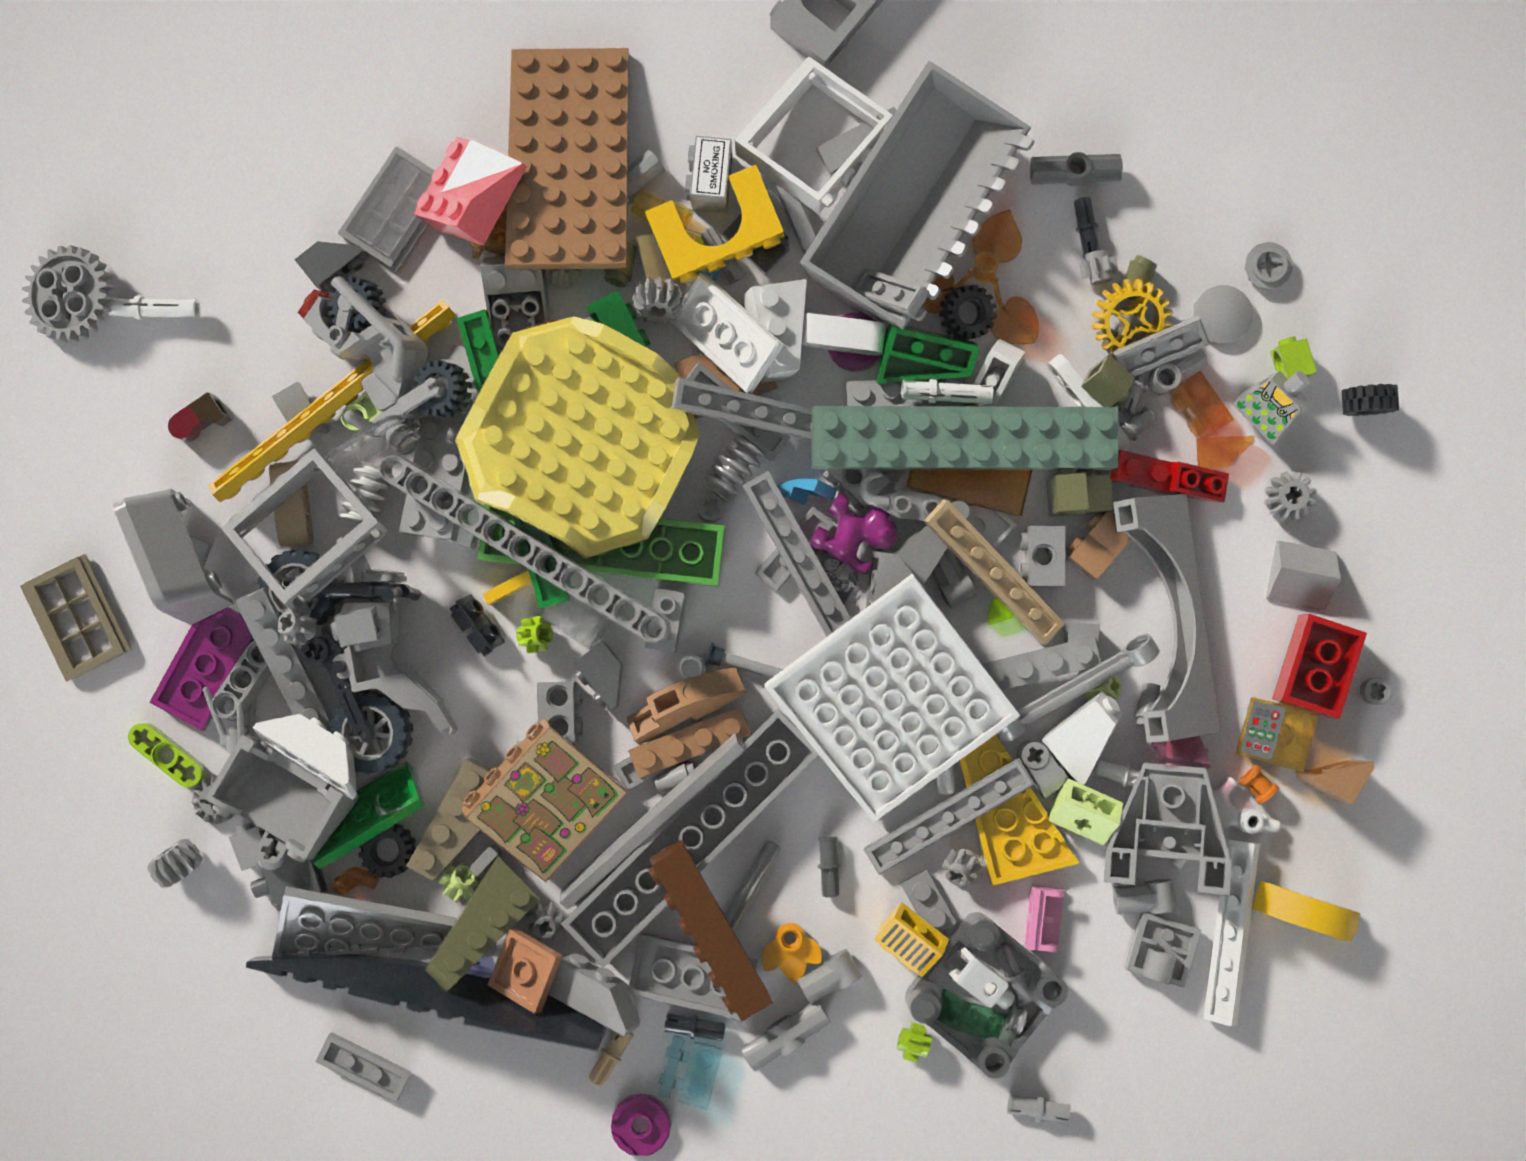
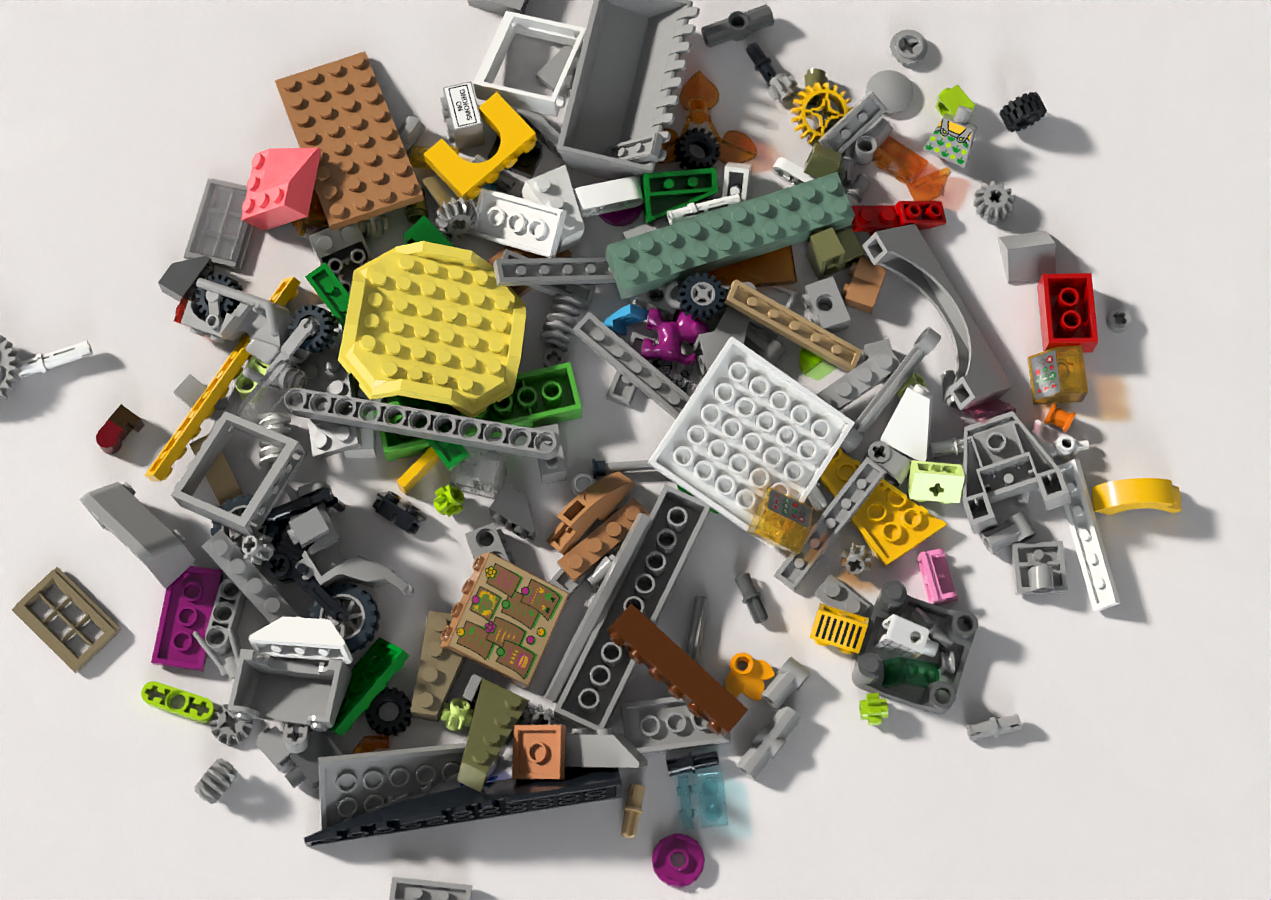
camera: 25 degrees left, 15 degrees down
(893, 801) = (781, 521): none -> clear yellow slope
(911, 502) = (706, 289): none -> black wheel
(1339, 780) = (1115, 391): medium nougat slope -> none

